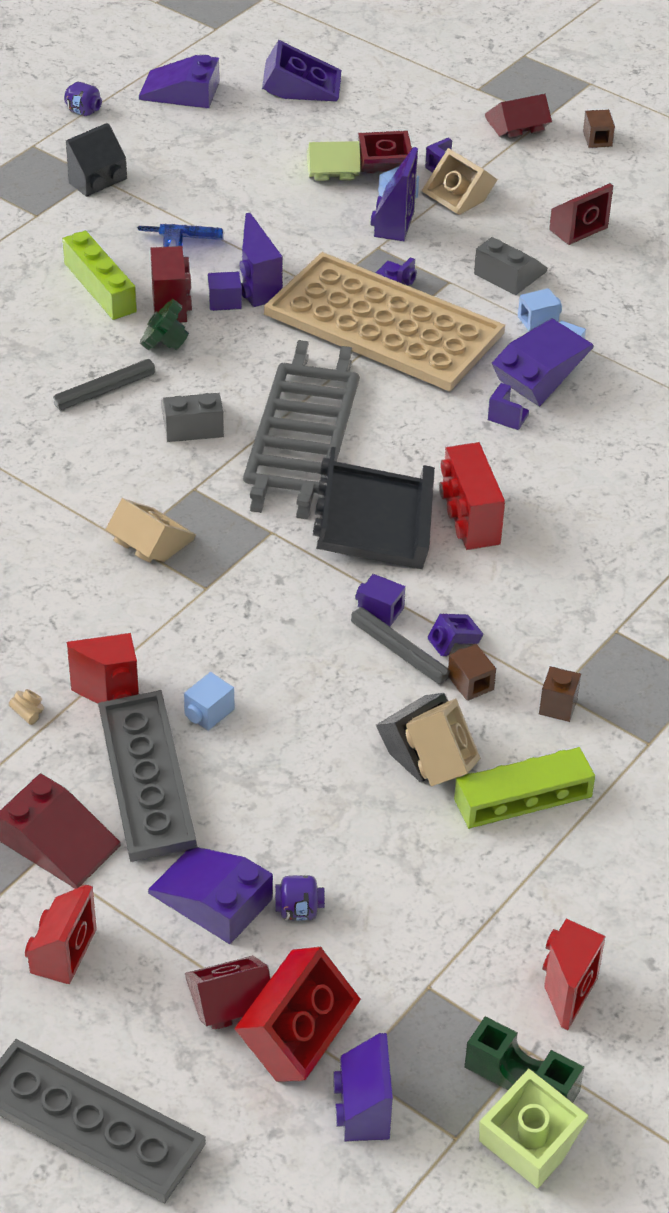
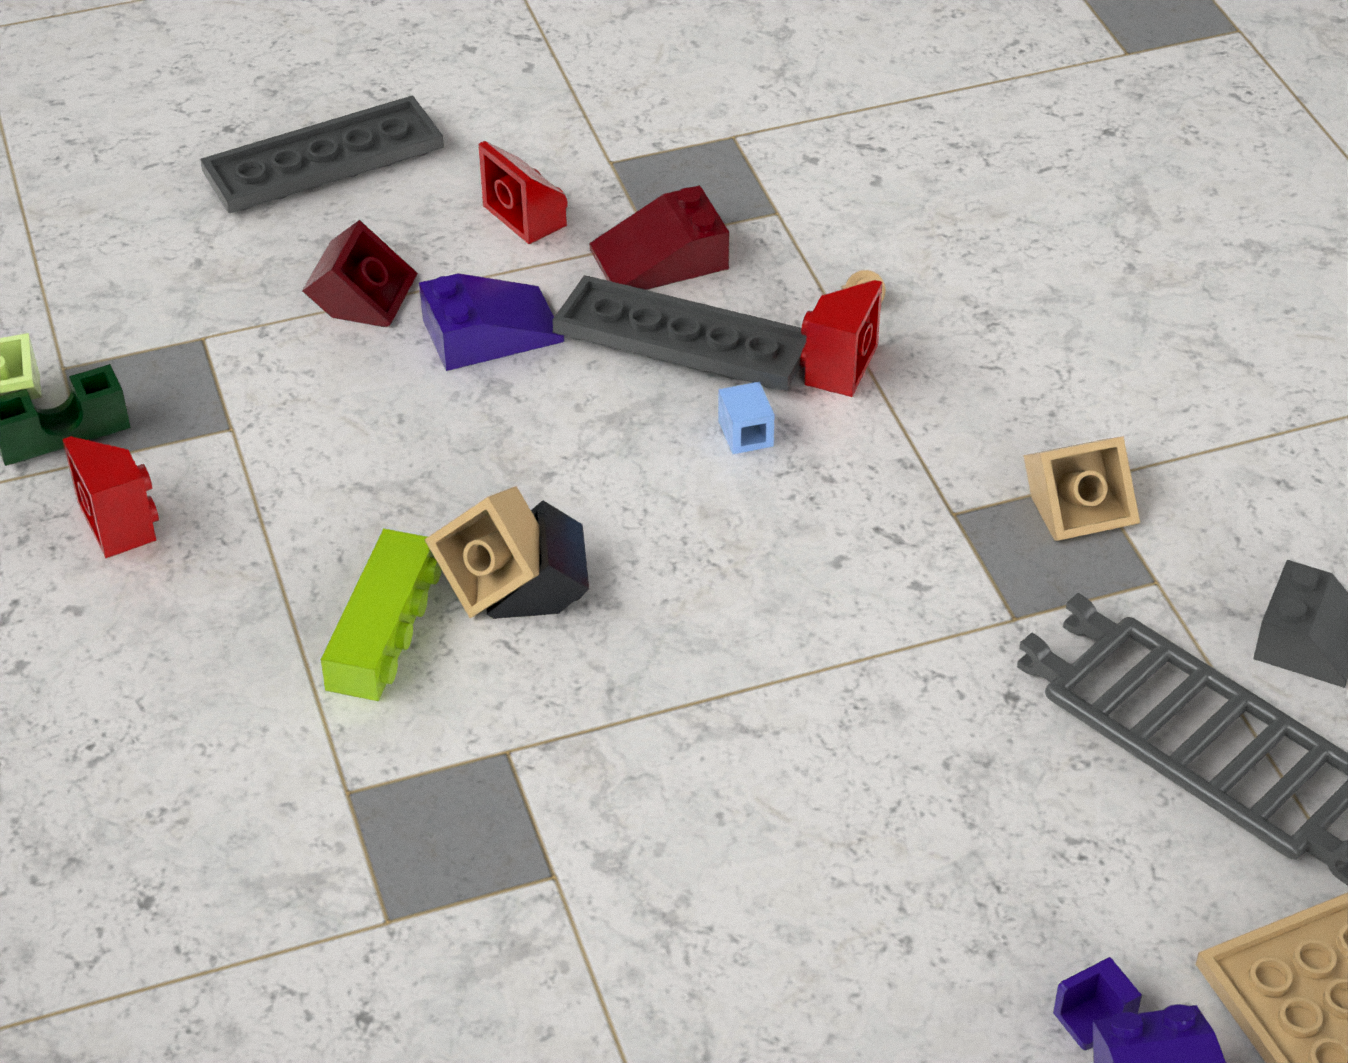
camera: 125 degrees right, 0 degrees up
(298, 1014) = (269, 284): red brick -> none
(299, 898) = (416, 370): dark purple head -> none
(365, 1091) = (151, 308): dark purple slope -> none
(374, 513) = (963, 710): black panel -> none
(382, 598) = (789, 639): dark purple brick -> none
(400, 645) = (704, 630): dark grey axle -> none
(451, 630) = (676, 685): dark purple bracket -> none
(471, 672) = (596, 661): reddish brown brick -> none
(472, 496) = (899, 812): red brick -> none
(559, 694) = (482, 720): reddish brown brick -> none

